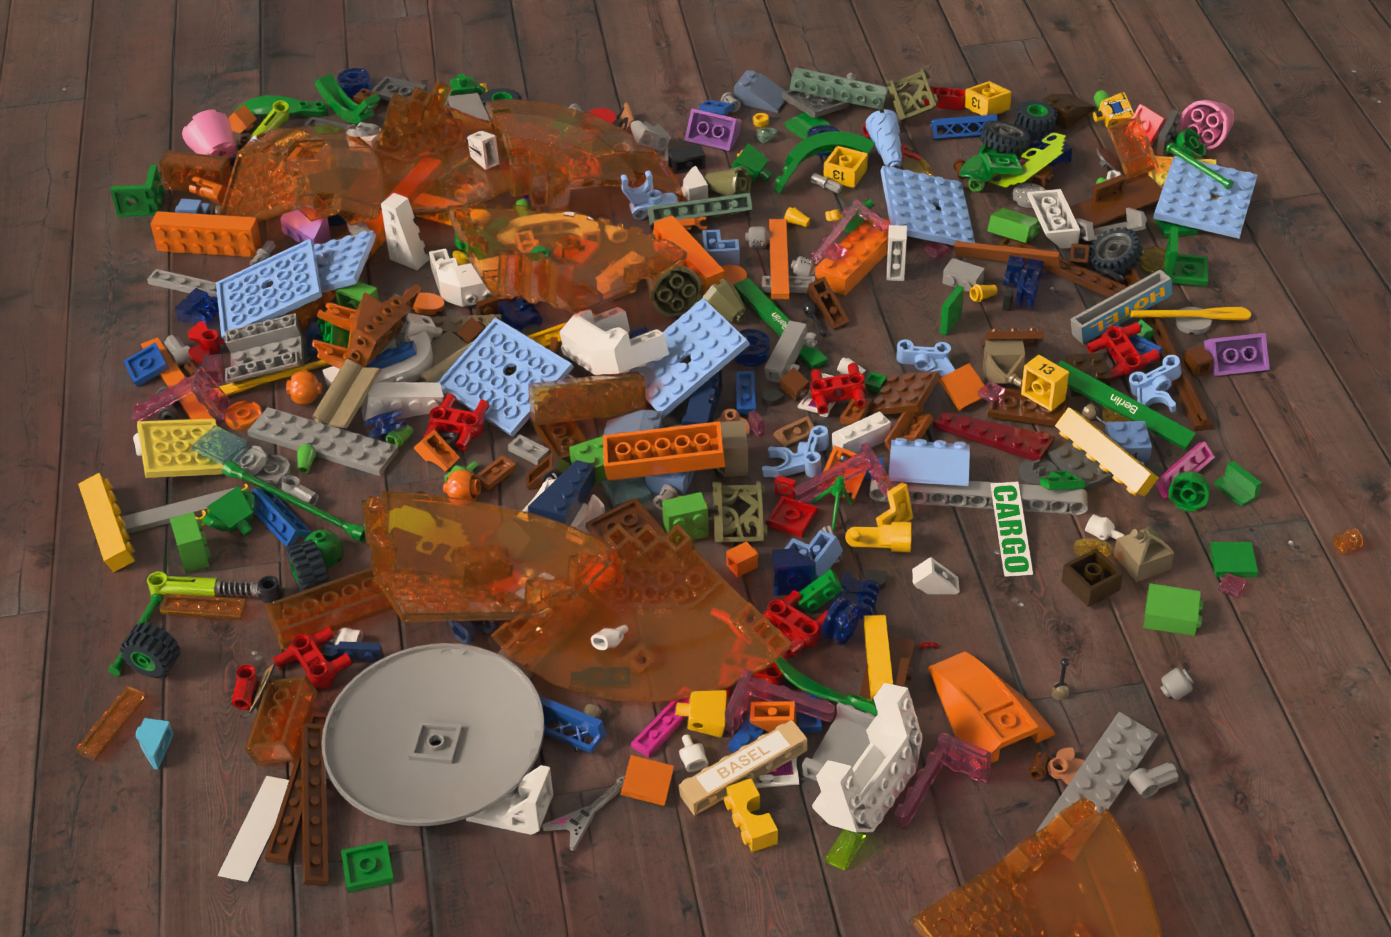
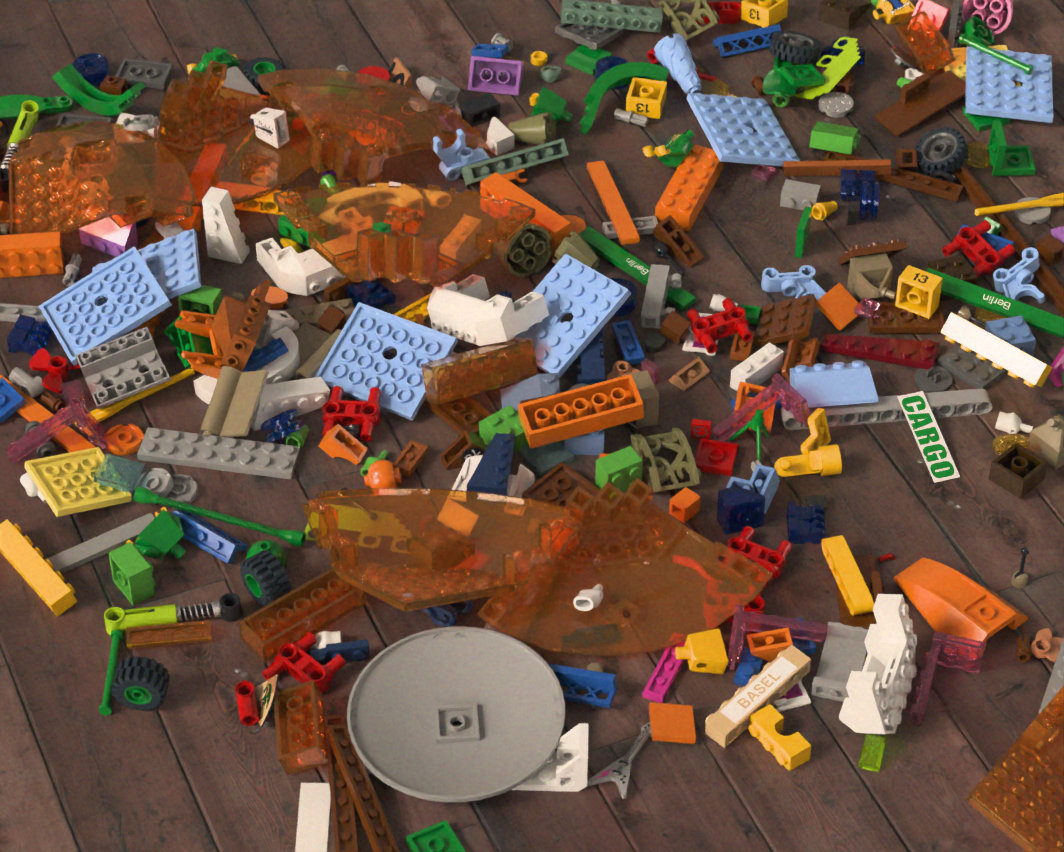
camera: 15 degrees left, 0 degrees up
(110, 723) = (125, 760): clear orange plate -> none
(154, 739) = (176, 768): medium azure slope -> none
(292, 486) = (212, 502): light grey piece -> none
(303, 387) = (180, 401): orange plant -> none
(305, 456) = (210, 472): bright green cone -> none
(312, 333) = (166, 351): dark blue hinge -> none
(528, 449) = (434, 431): light grey plate -> none
(669, 494) = (588, 457): light grey bush -> none
(693, 755) = (704, 693): white piece -> none
(722, 251) = (559, 201): medium blue brick -> none
(757, 237) = (582, 183): light grey head -> none
(759, 92) = (528, 29): sand blue slope -> none
(796, 217) = (614, 157): yellow cone -> none
(803, 267) = (640, 208): light grey head -> none
(806, 458) = (709, 401): light blue piece -> none
(810, 686) = (846, 619): green plant -> none
(820, 591) = (772, 523): green bracket -> none
(834, 251) = (670, 188): clear pink tile -> none
(838, 227) = (668, 162): clear pink bracket -> none
(841, 621) = (802, 547): clear blue wheel -> none
(896, 252) = (732, 181): white brick -> none
(935, 578) = (872, 494): white slope -> none
(1036, 118) = (819, 22): black wheel -> none
(1055, 217) = (872, 124): white slope -> none
(1062, 480) = (962, 383): green tile -> none
(1118, 307) = (962, 207): brick -> none
(1135, 220) = (906, 134): light grey panel -> none

